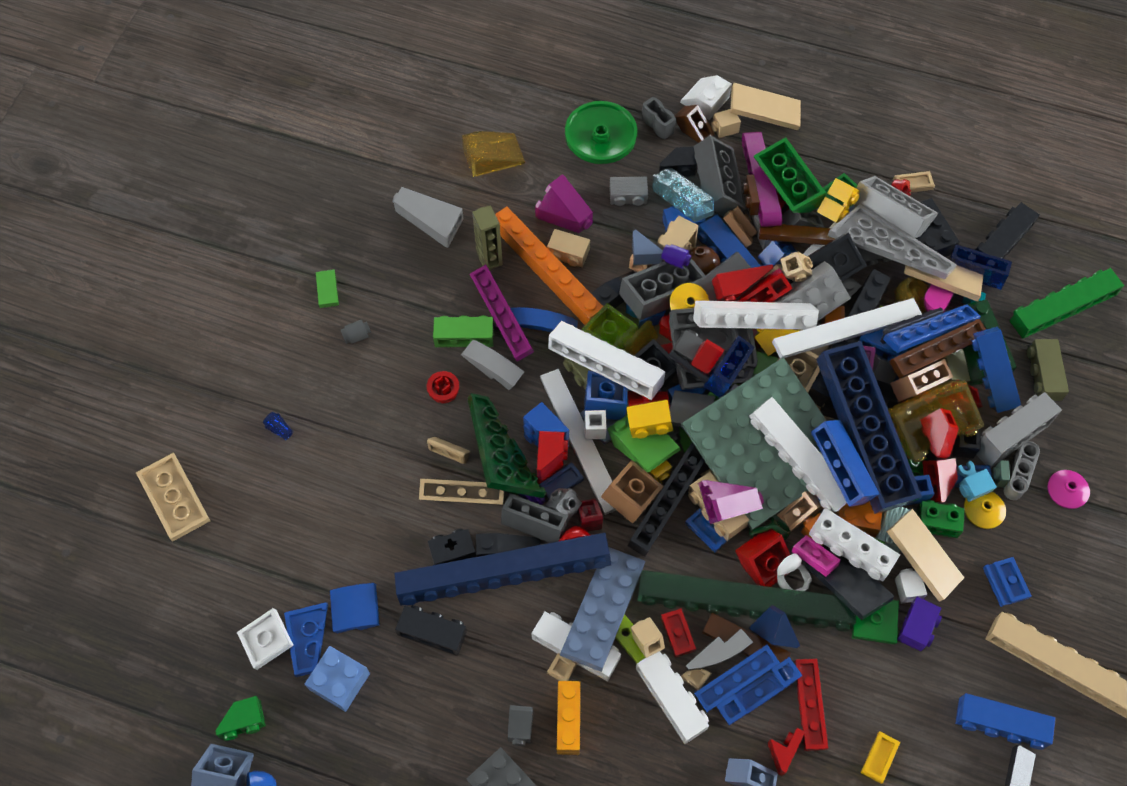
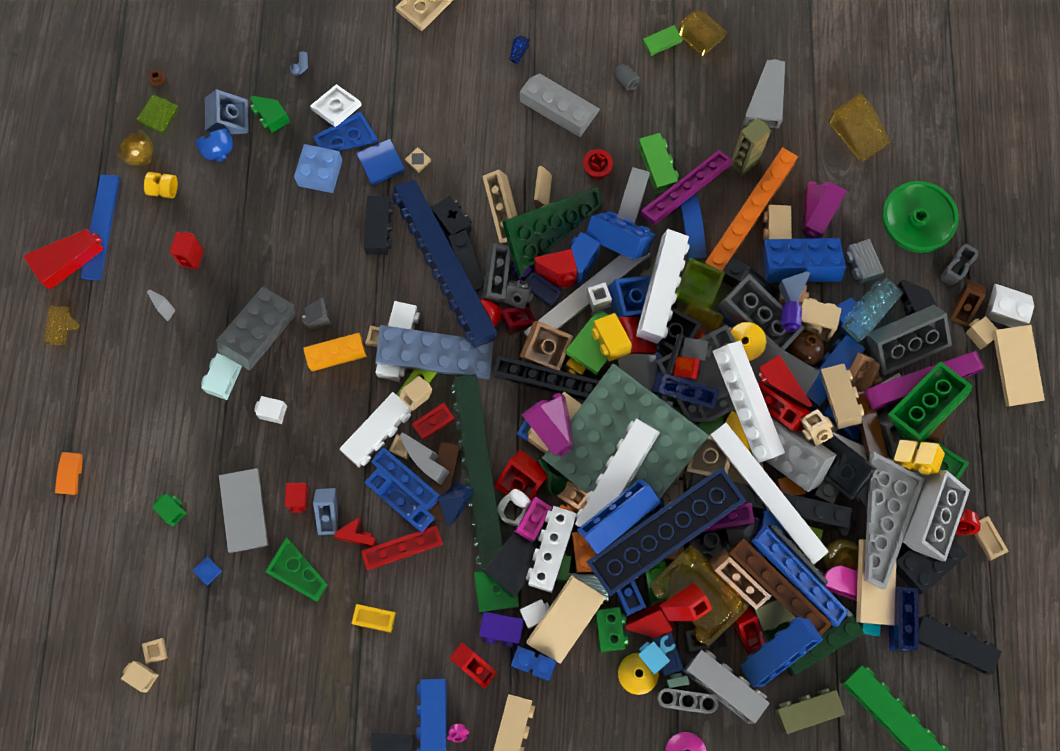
camera: 75 degrees right, 10 degrees up
(195, 665) = (298, 69): none -> sand blue arm
(334, 250) = (701, 31): none -> clear yellow slope
(359, 405) = (558, 104): none -> light grey slope
(367, 567) = (418, 160): none -> tan tile
(536, 383) = (620, 235): none -> blue brick
(612, 237) = (791, 257): none -> blue brick
(752, 200) = (903, 370): reddish brown plate -> none
(764, 242) = (842, 396): none -> tan brick
(951, 664) = (473, 665): none -> red slope
(960, 606) = (526, 660): none -> blue piece
(1007, 582) = (567, 704): blue plate -> none
(1019, 698) = (457, 733): none -> dark pink plate

